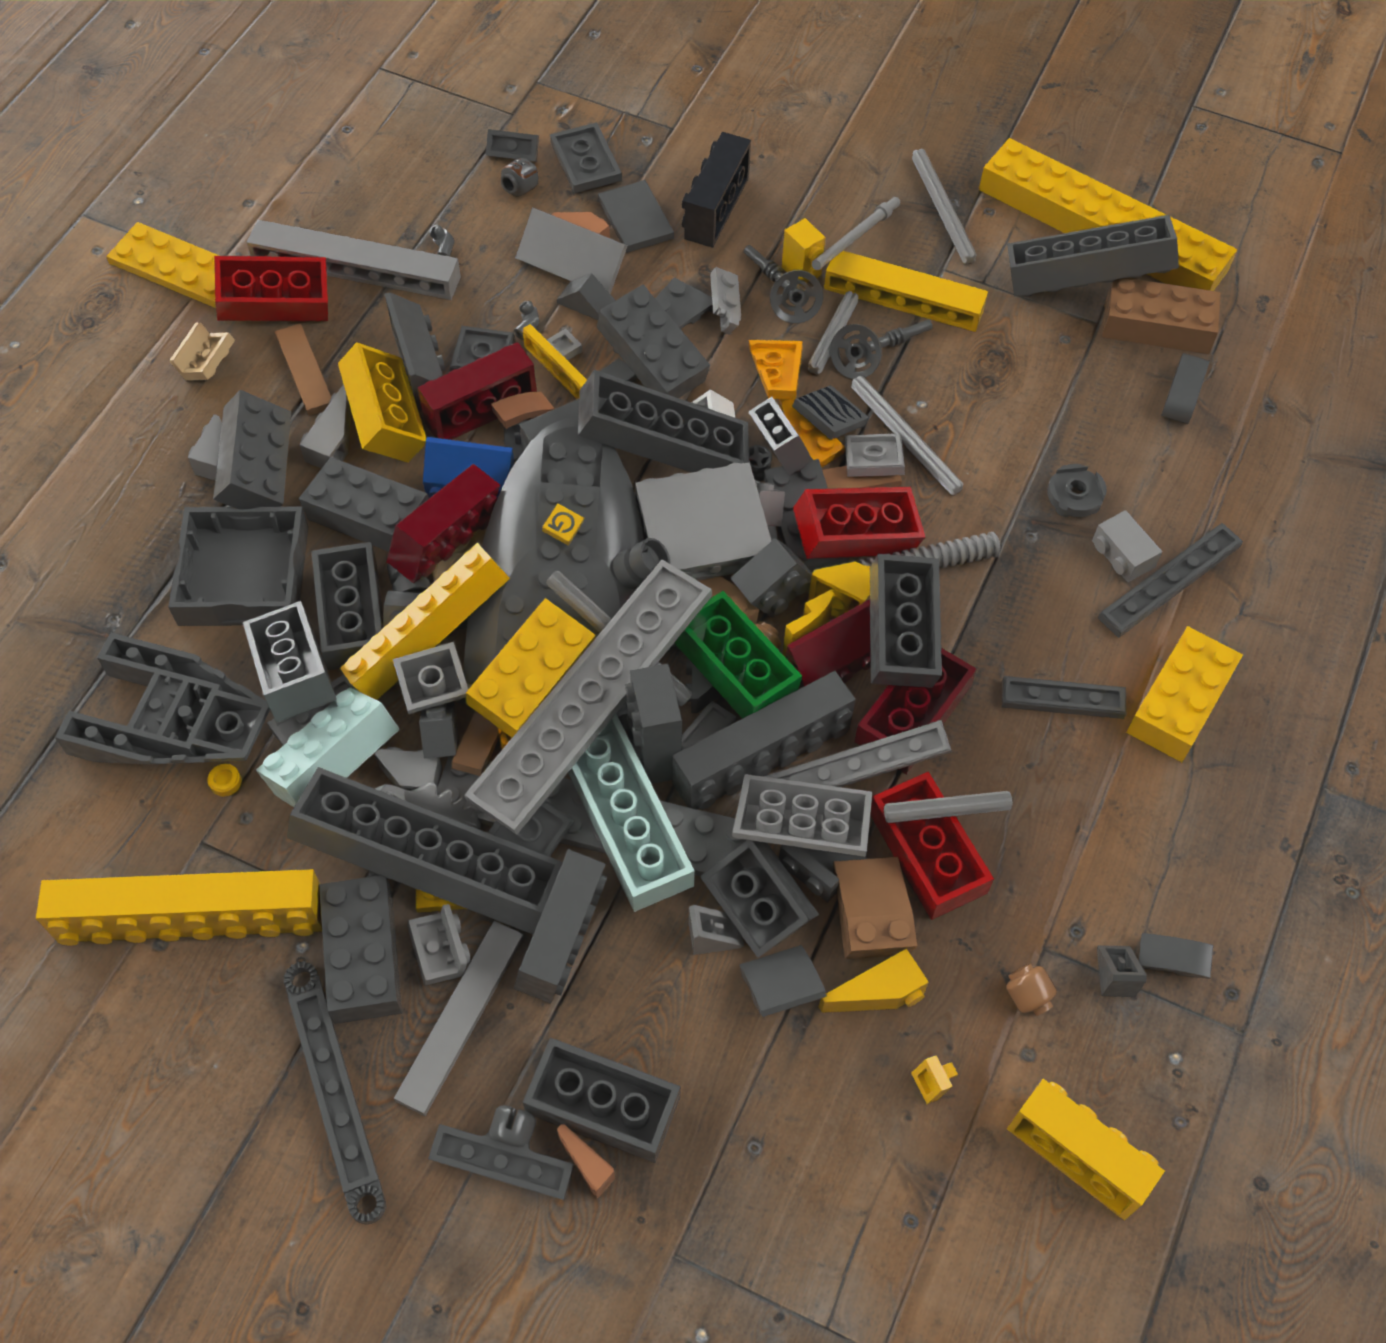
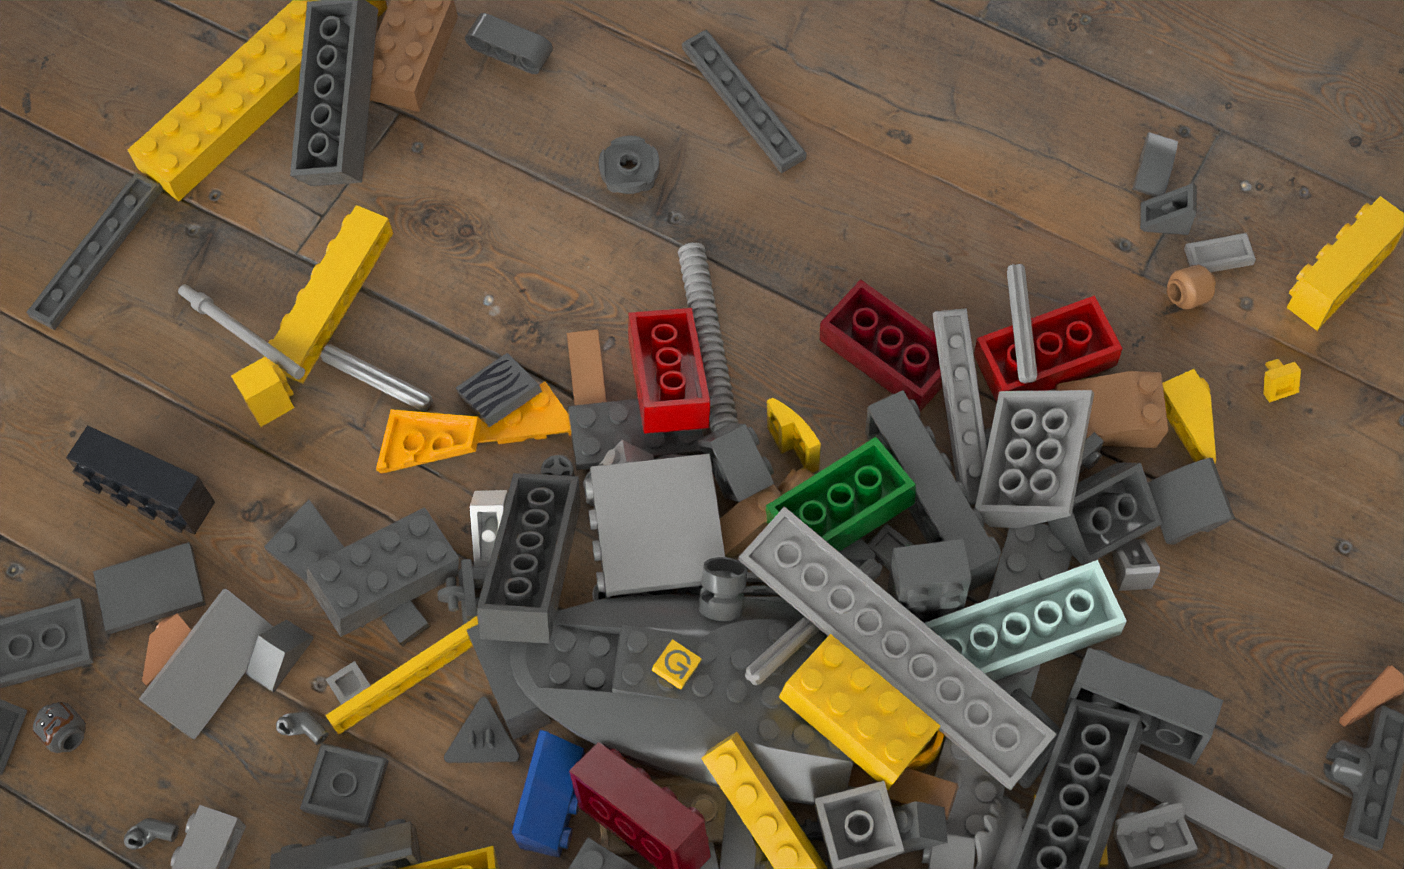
camera: 80 degrees left, 5 degrees up
(465, 395) = (424, 775): dark red brick -> none
(521, 407) = (450, 732): nougat slope -> none
(602, 1099) = (1319, 675): dark grey brick -> none
(726, 299) = (311, 489): light grey hinge -> none
(780, 436) = (540, 438): dark grey brick -> none
(791, 290) = (314, 410): dark grey dish -> none
(836, 646) = (815, 400): dark red slope -> none
(847, 581) = (753, 384): yellow slope -> none
(865, 348) = (414, 346): dark grey dish -> none
(874, 455) = (564, 351): light grey tile -> none
(905, 621) = (822, 328): dark grey brick -> none
(908, 435) = (532, 319): light grey axle -> none
(911, 139) = (94, 251): none -> dark grey tile
(944, 206) = (200, 239): light grey axle -> none
(1064, 697) = (875, 216): dark grey tile -> none
(1081, 1025) = (1221, 253): none -> light grey tile
(1126, 546) = (706, 130): light grey brick -> none
(1184, 694) = (883, 108): yellow brick -> none

